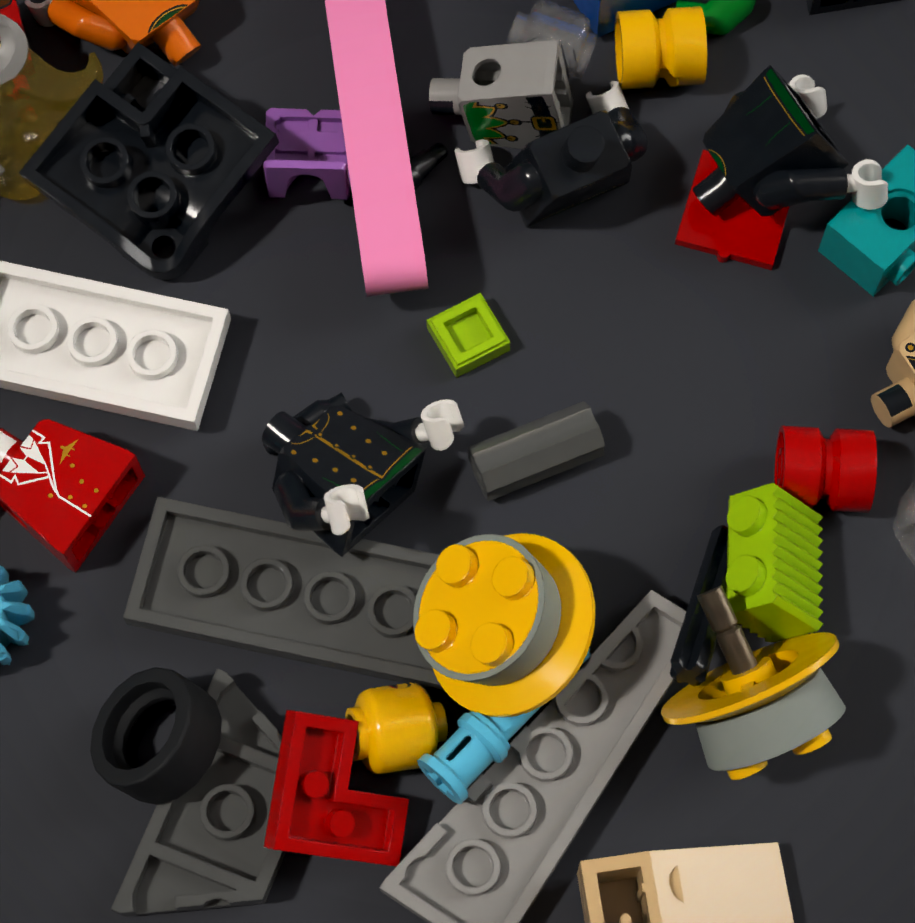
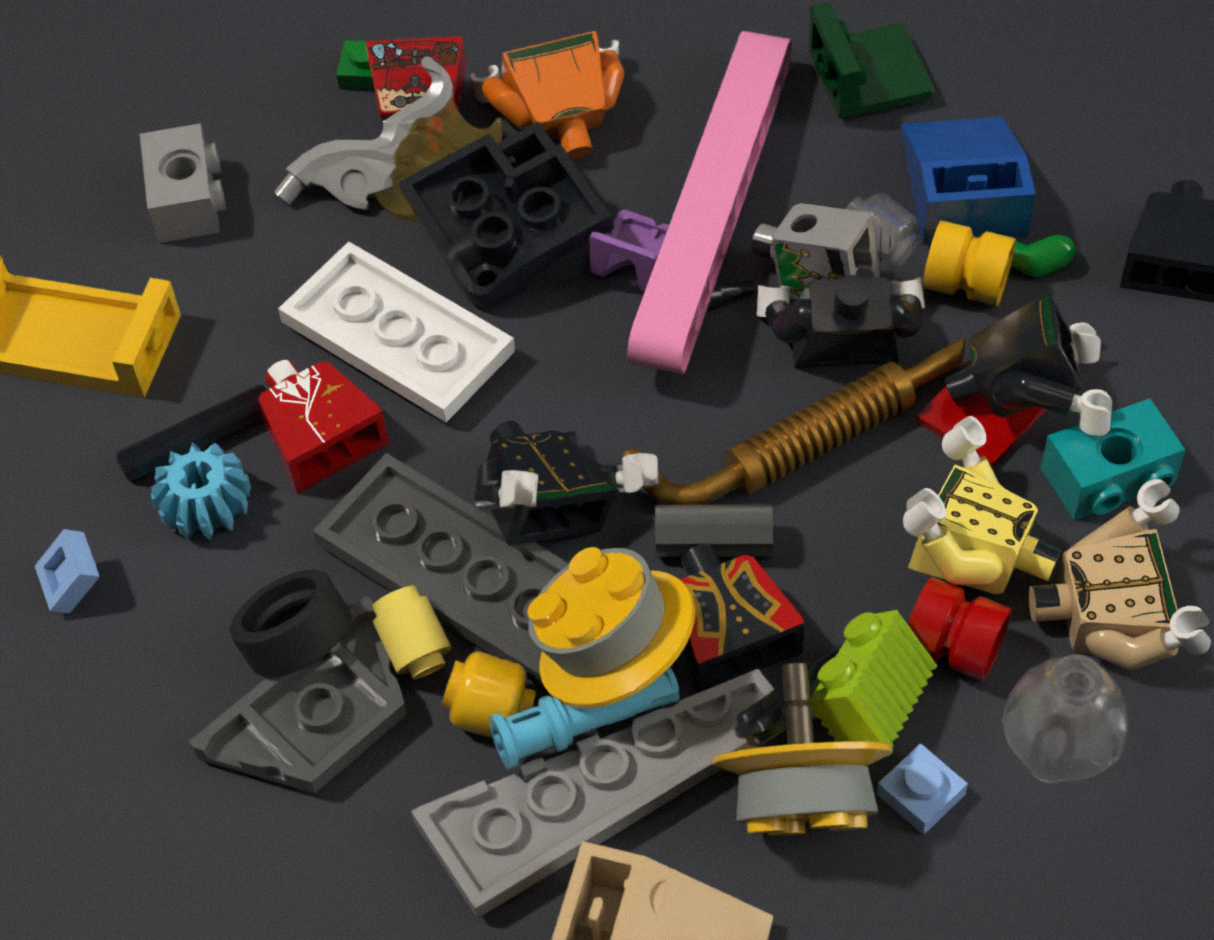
camera: 25 degrees right, 15 degrees down
(280, 683) = (410, 632): none -> light yellow brick
(312, 801) = (388, 727): red plate -> none
(468, 335) = (703, 428): lime tile -> none
(580, 303) = (811, 431): none -> pearl gold piece
(607, 531) = (739, 618): none -> torso
(798, 350) = (975, 526): none -> light yellow torso
(862, 648) = (921, 789): none -> light blue plate

